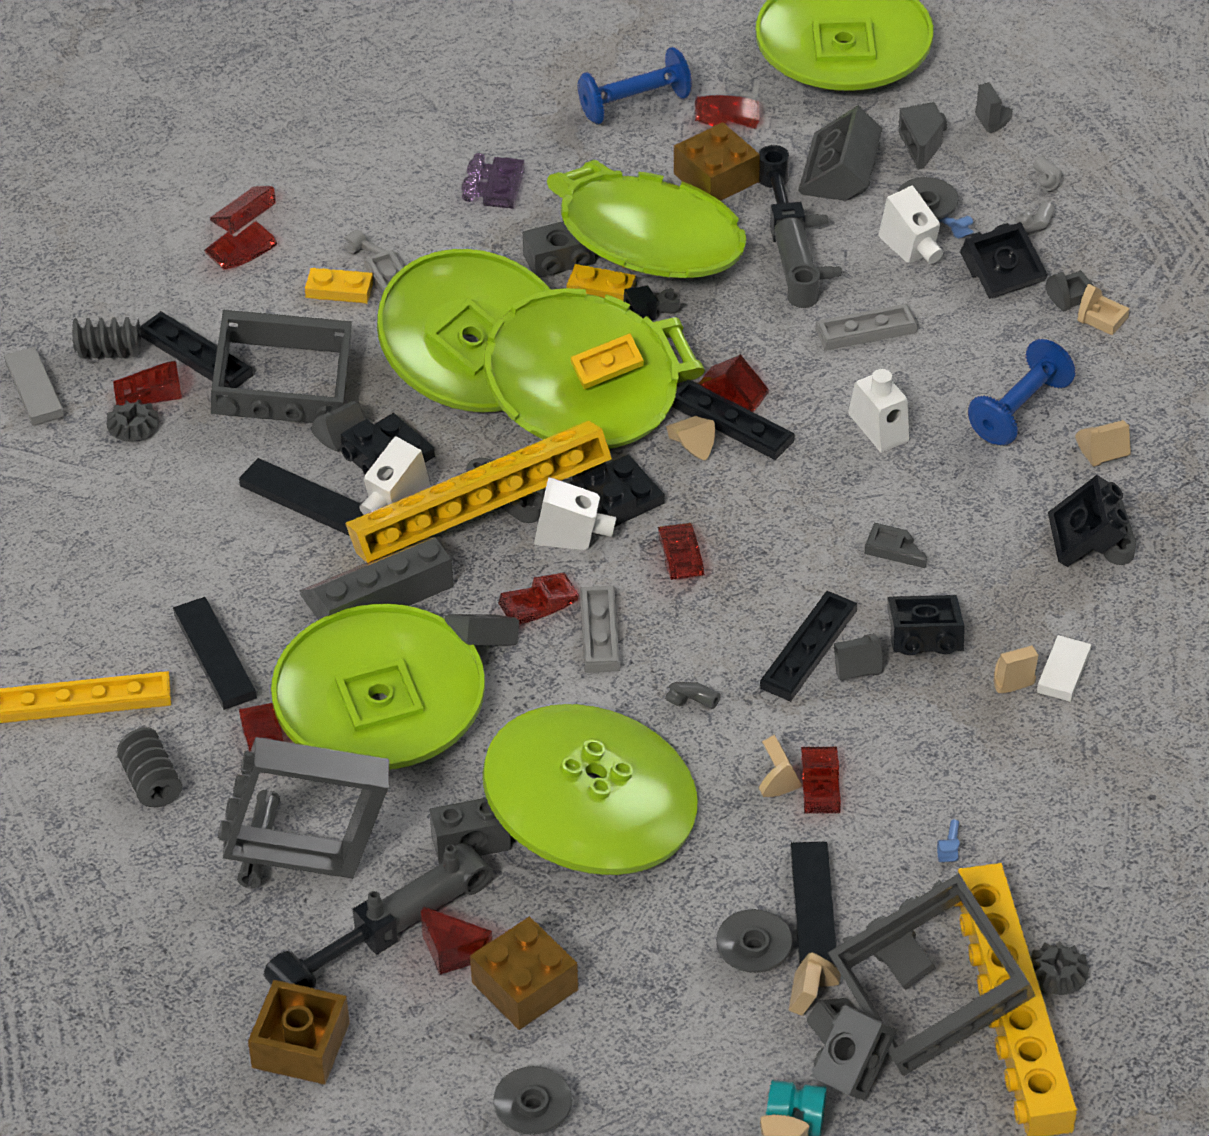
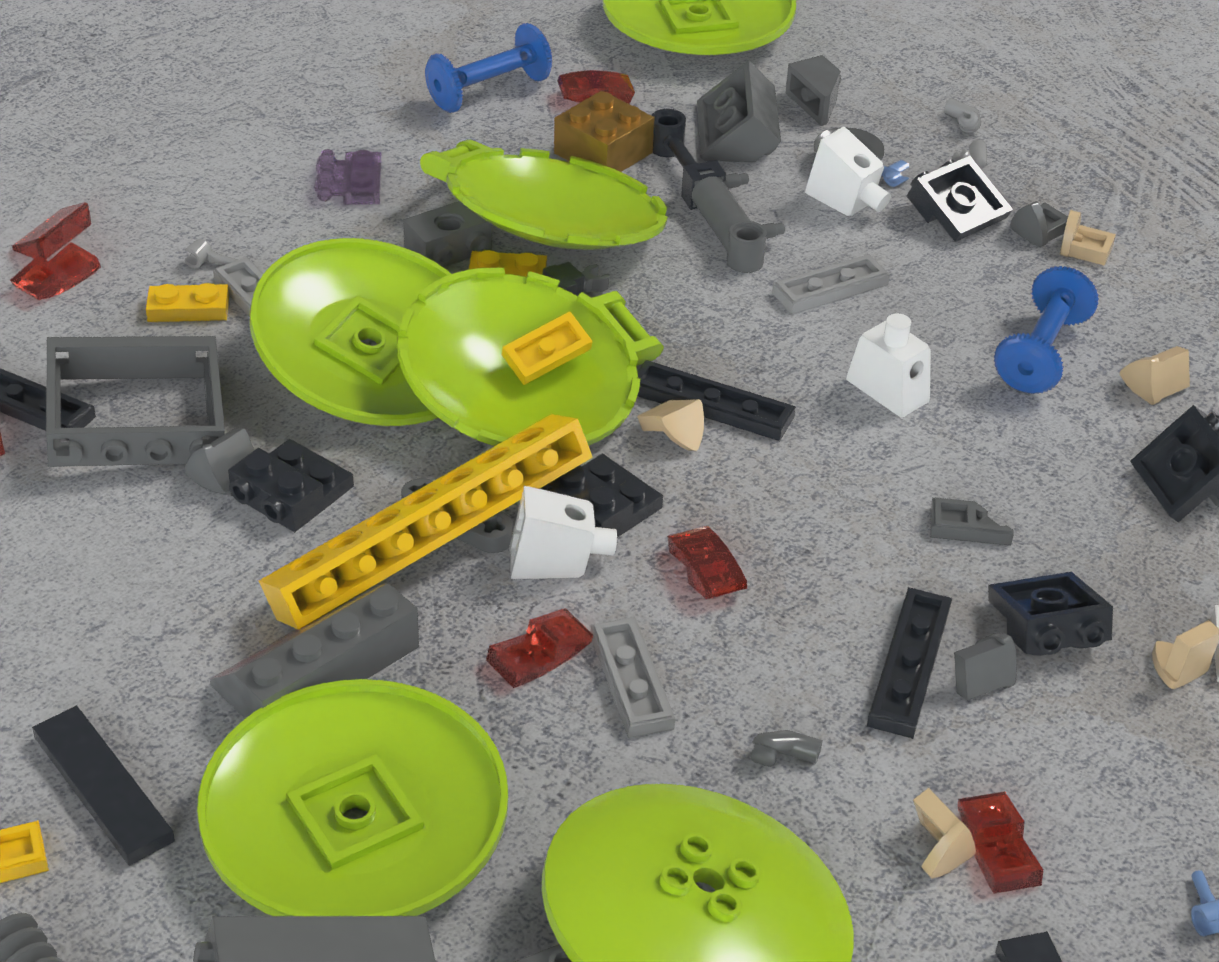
camera: 15 degrees left, 5 degrees down
(259, 722) = (192, 893): clear red slope -> none
(300, 495) = (189, 554): black tile -> none
(395, 475) = (313, 511): white torso -> none
(484, 628) = (482, 696): dark grey slope -> none
(736, 382) = (705, 355): clear red slope -> none
(989, 109) = (879, 59): dark grey tile -> none

